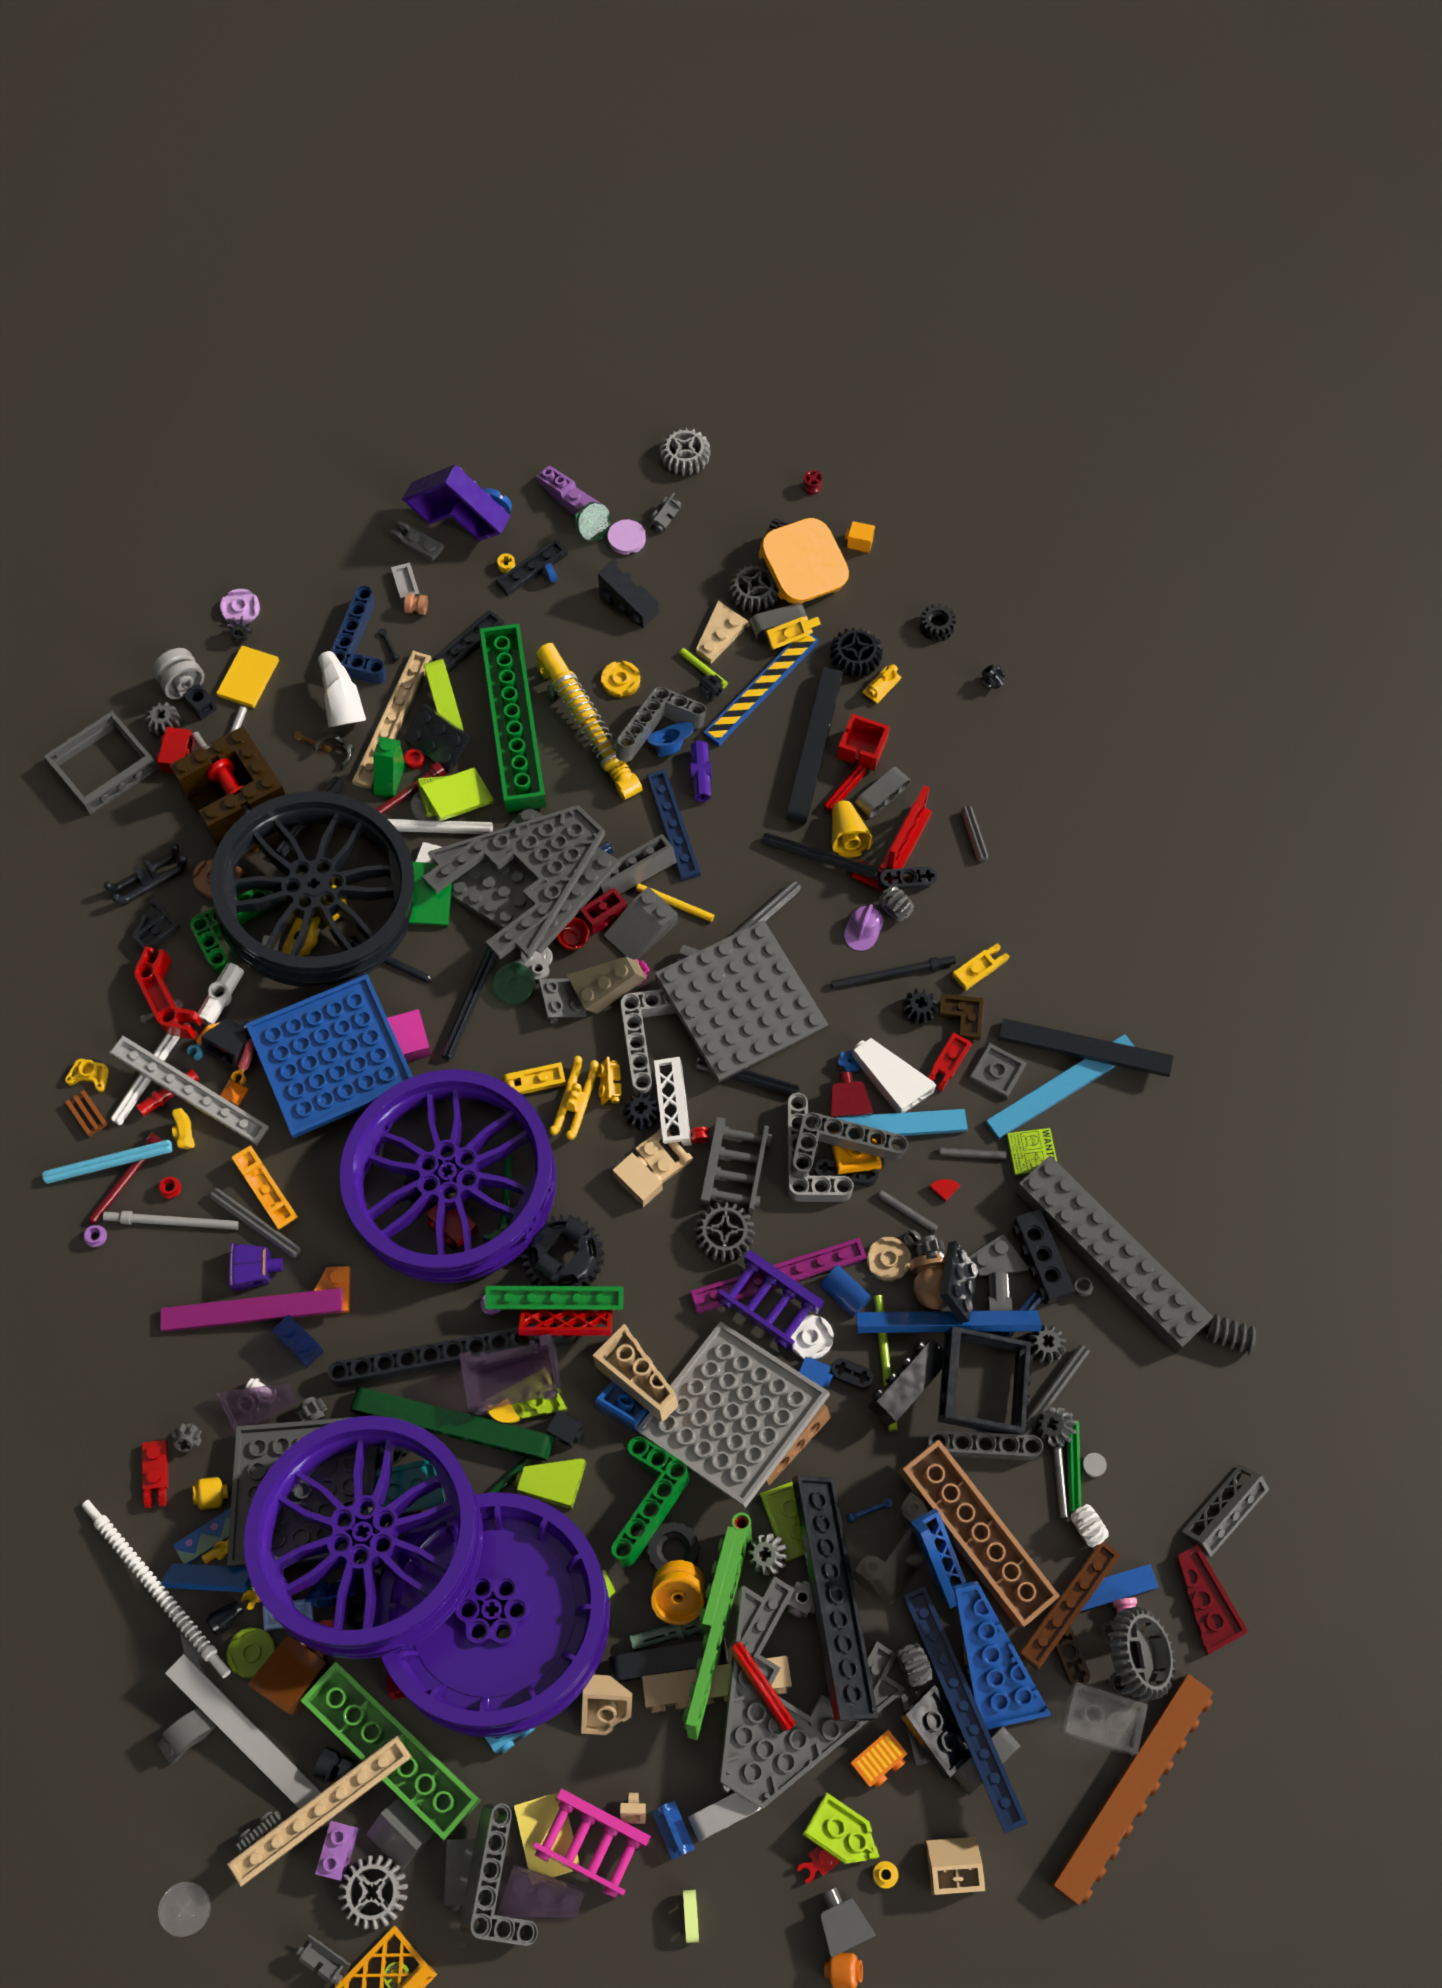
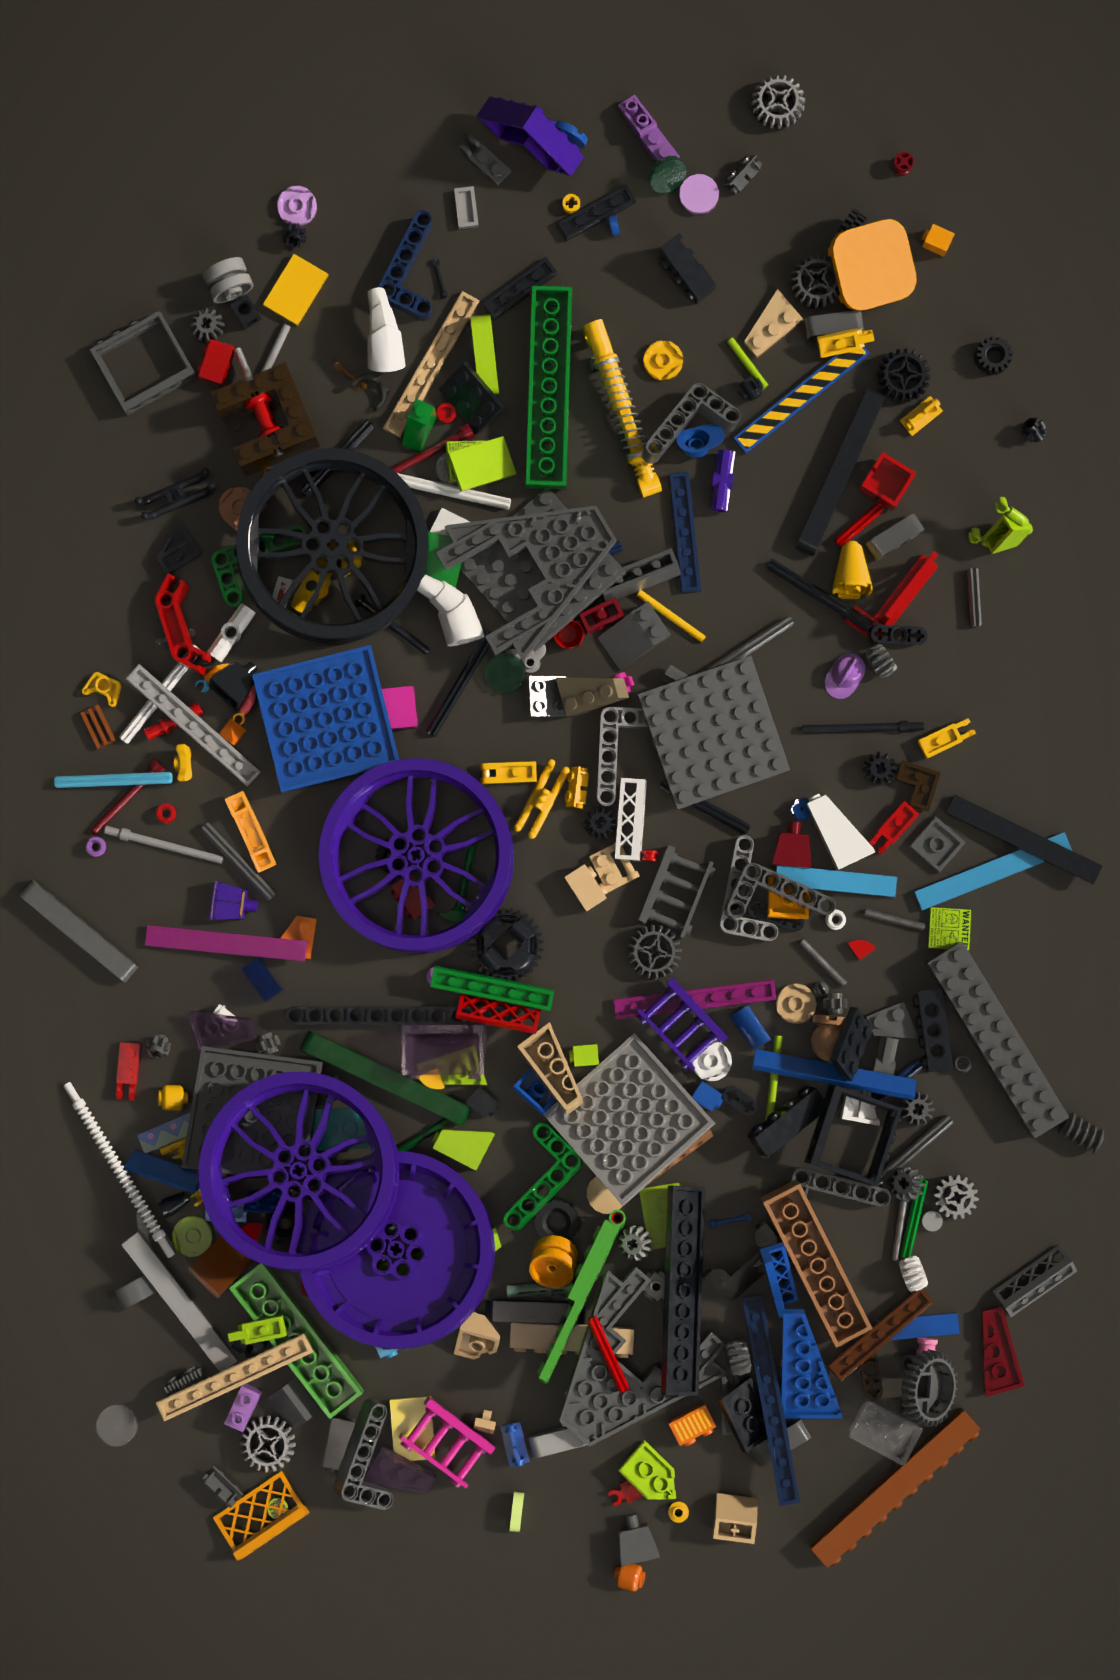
camera: 15 degrees right, 20 degrees up
(84, 1328) = (78, 930): none -> dark grey beam
(343, 1743) = (259, 1330): none -> lime hinge
(416, 604) = (473, 237): nougat wheel -> none
(452, 932) = (455, 611): none -> white piece
(670, 1355) = (584, 1055): none -> lime brick
(719, 1508) = (601, 1198): none -> tan tile
(913, 1159) = (842, 920): none -> white plate
(984, 1359) = (857, 1110): none -> white wing
(991, 764) = (1006, 532): none -> lime torso
(1118, 1439) = (968, 1193): none -> light grey gear

